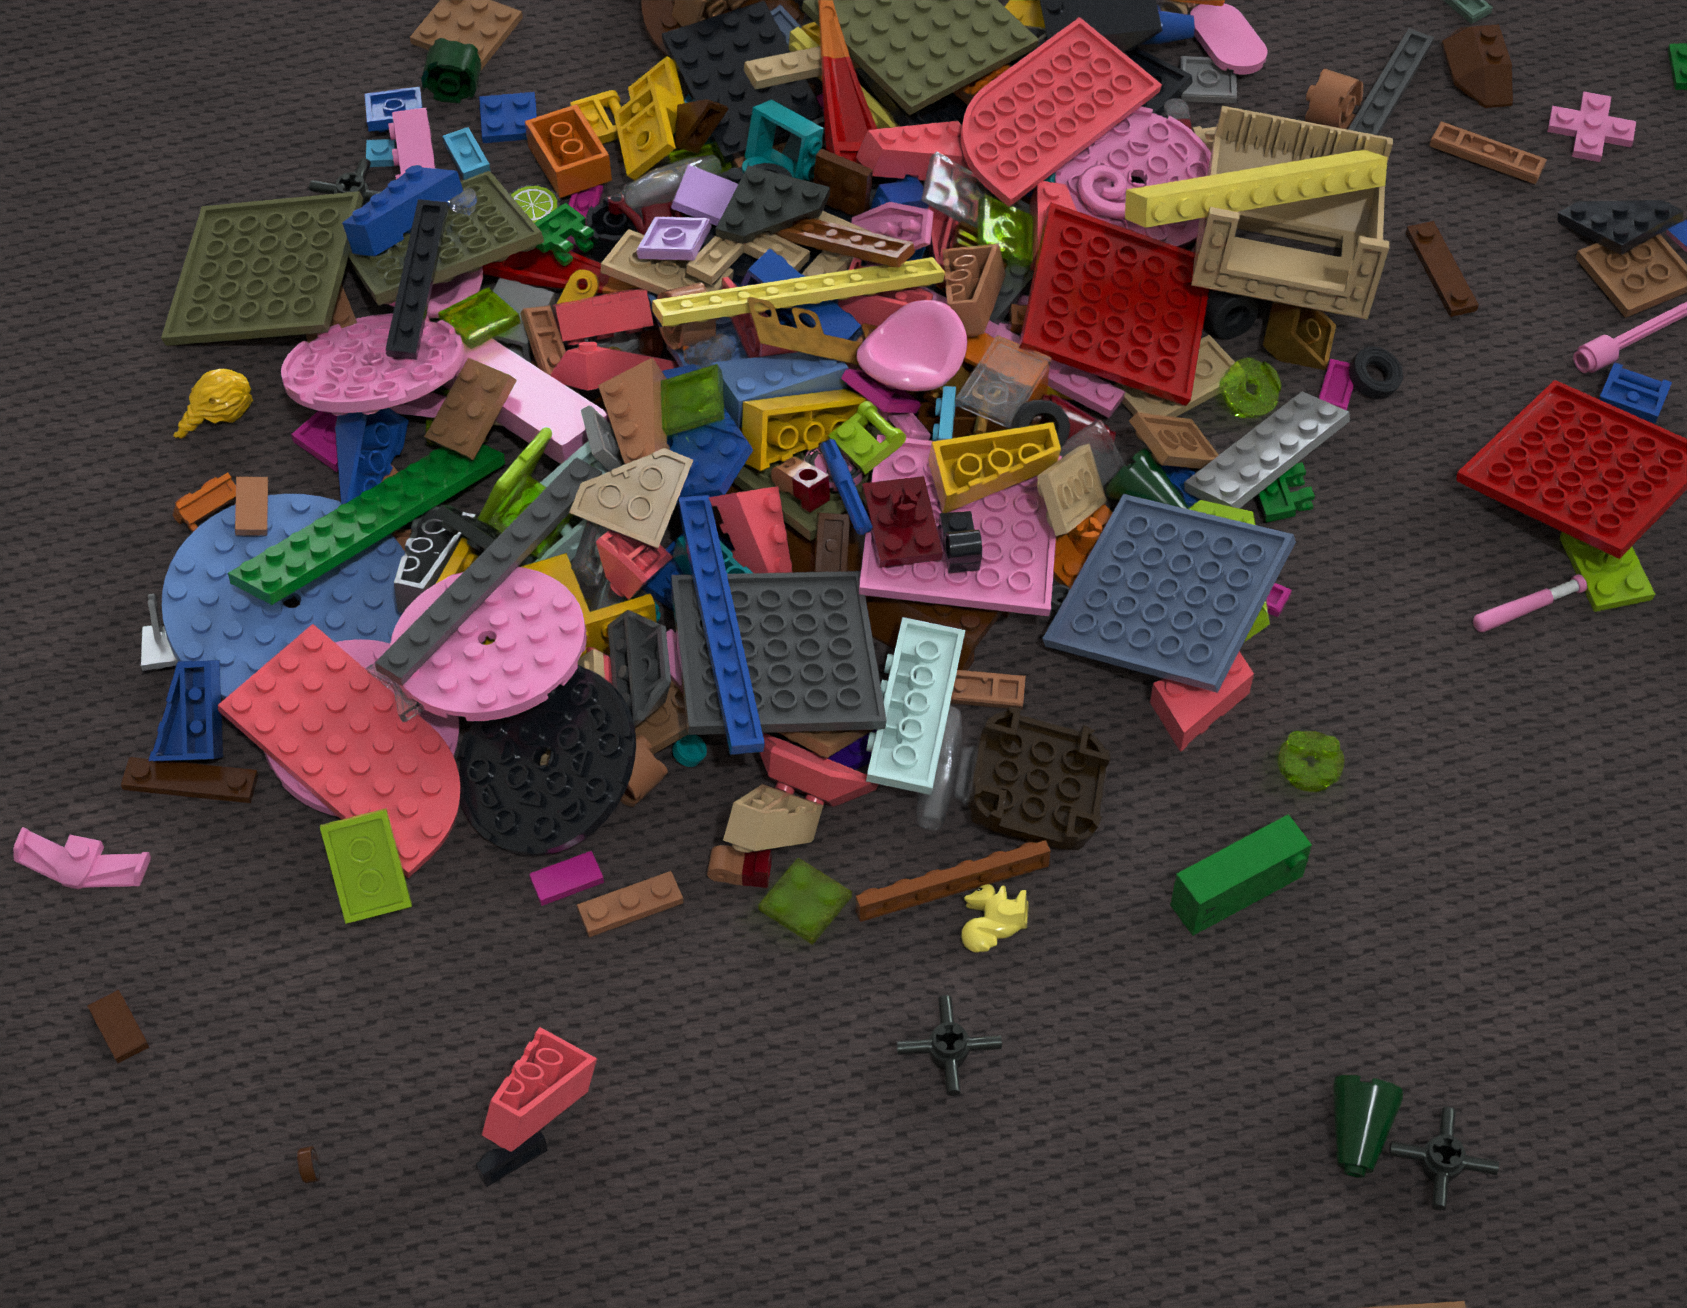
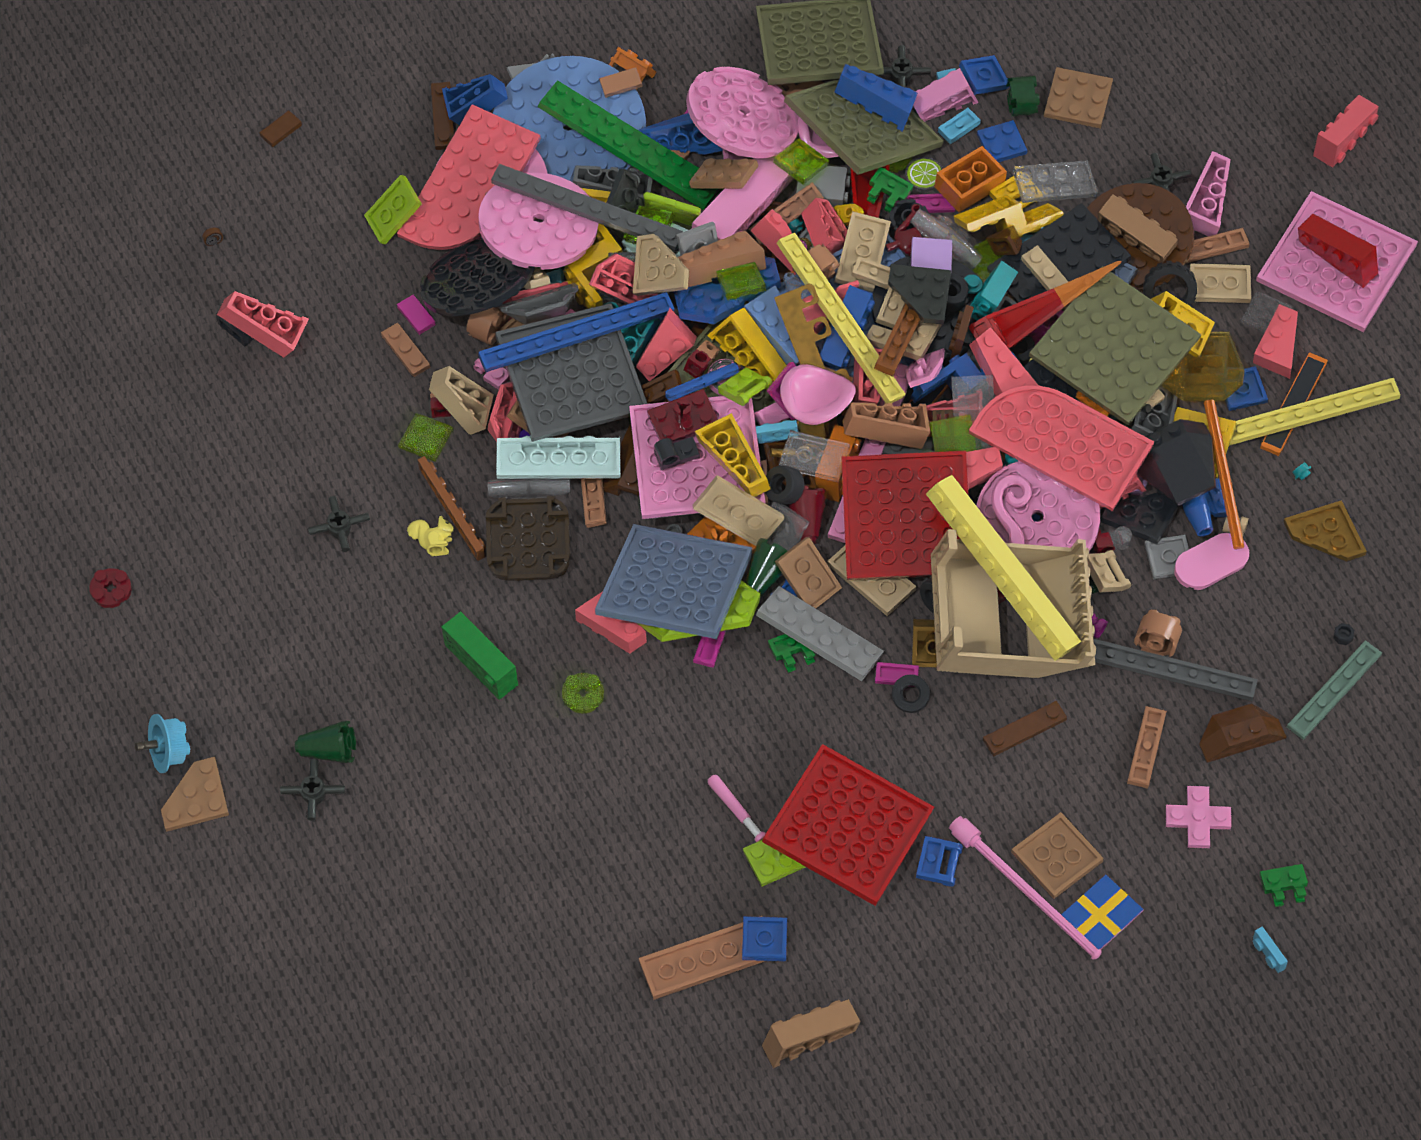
camera: 80 degrees right, 5 degrees up
(79, 862) = (377, 79): bright pink plate -> none
(216, 397) = (714, 48): yellow hair -> none
(417, 279) = (799, 111): black plate -> none
(464, 202) = (895, 128): clear tile -> none
(601, 69) = (1055, 181): none -> clear plate
(674, 238) = (882, 245): lavender tile -> none
(714, 783) = (494, 377): none -> bright pink plate
(1239, 399) = (875, 628): clear neon green plate -> none
(1620, 223) = (1096, 837): black plate -> none

